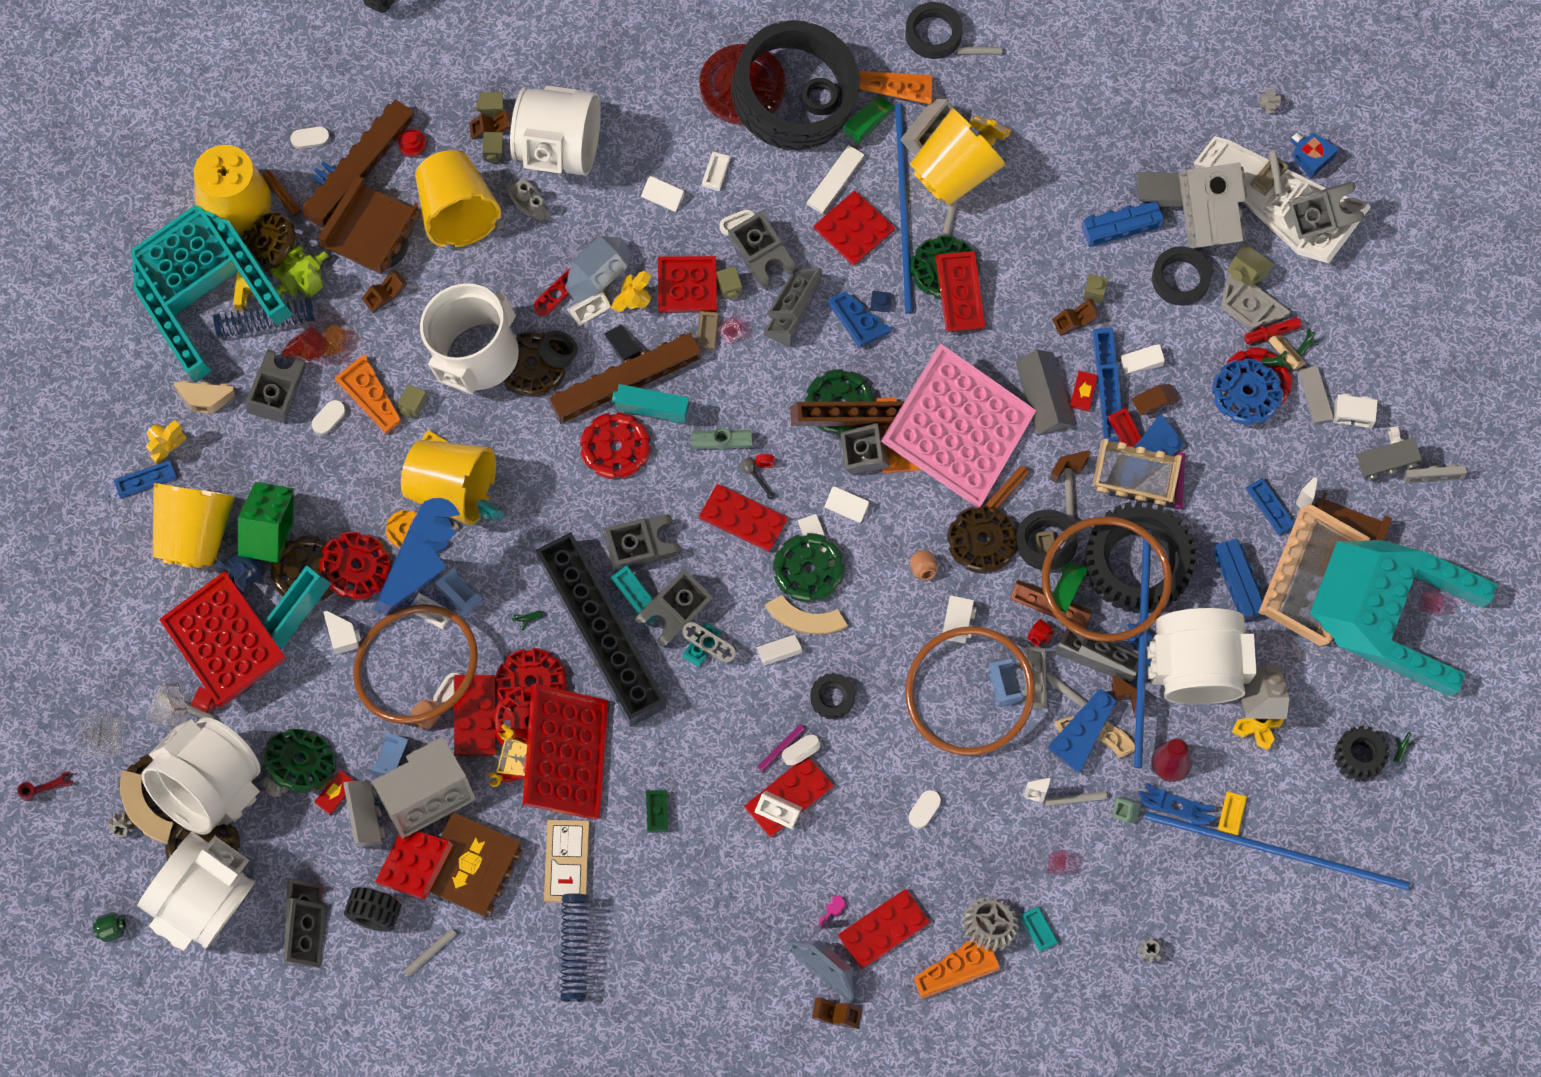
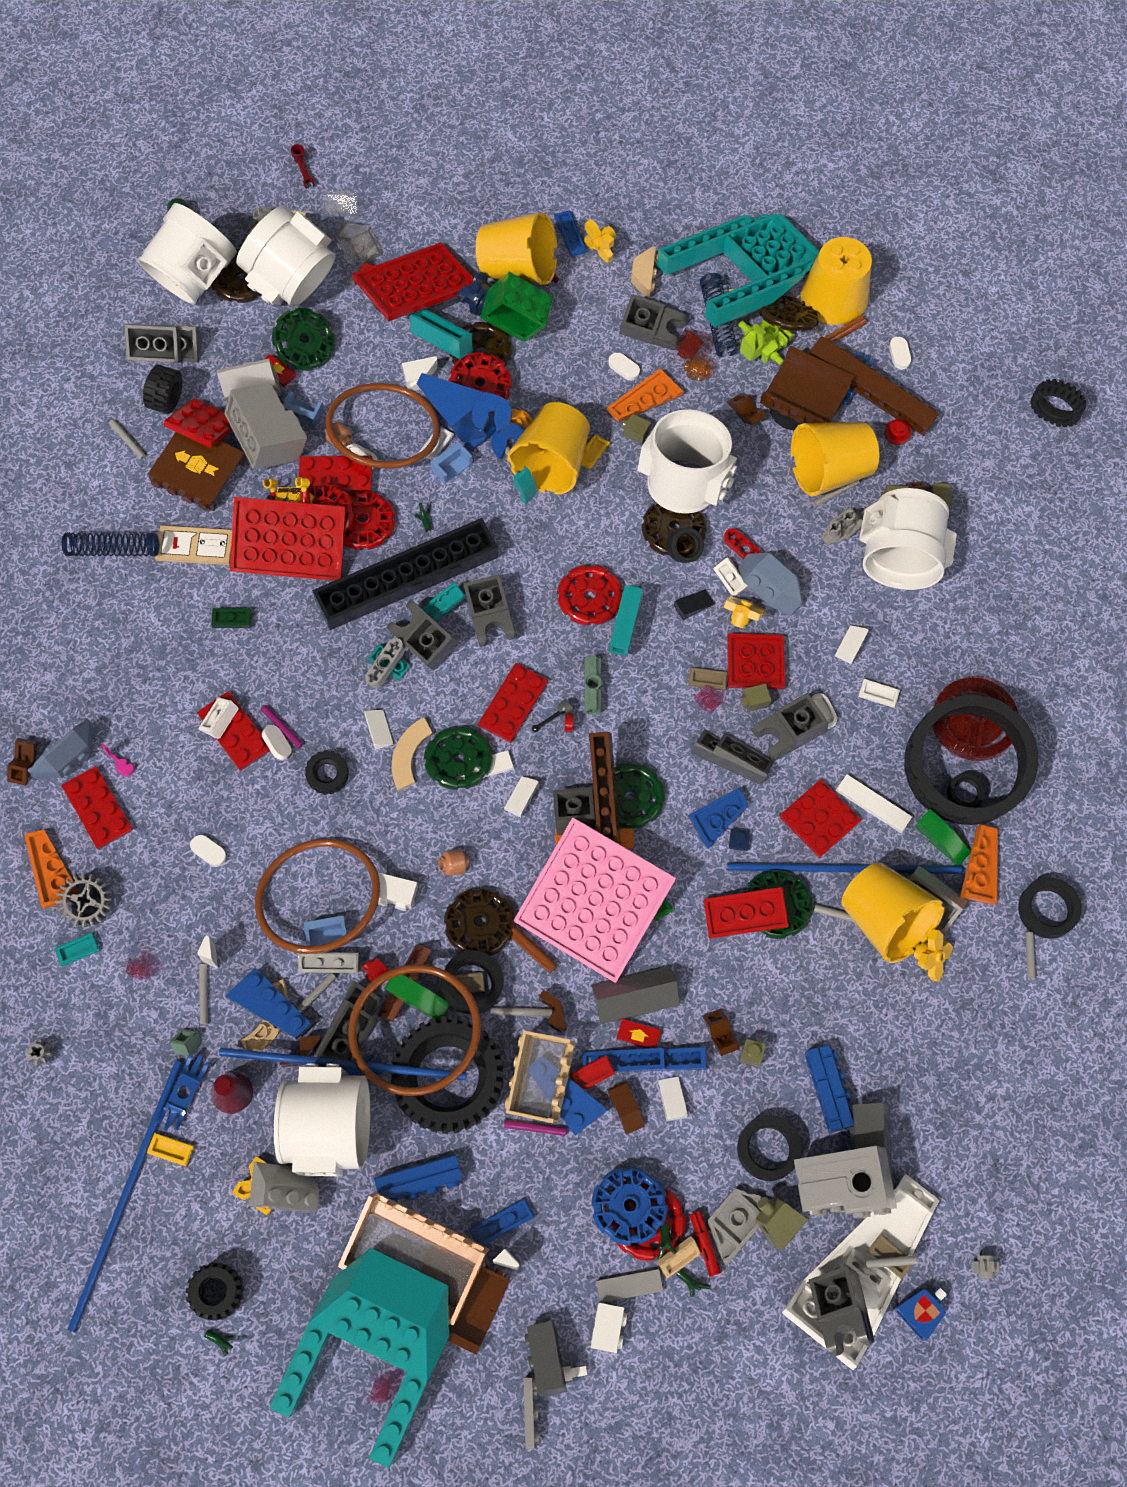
camera: 90 degrees right, 0 degrees up
(632, 372) = (658, 605): reddish brown brick -> none

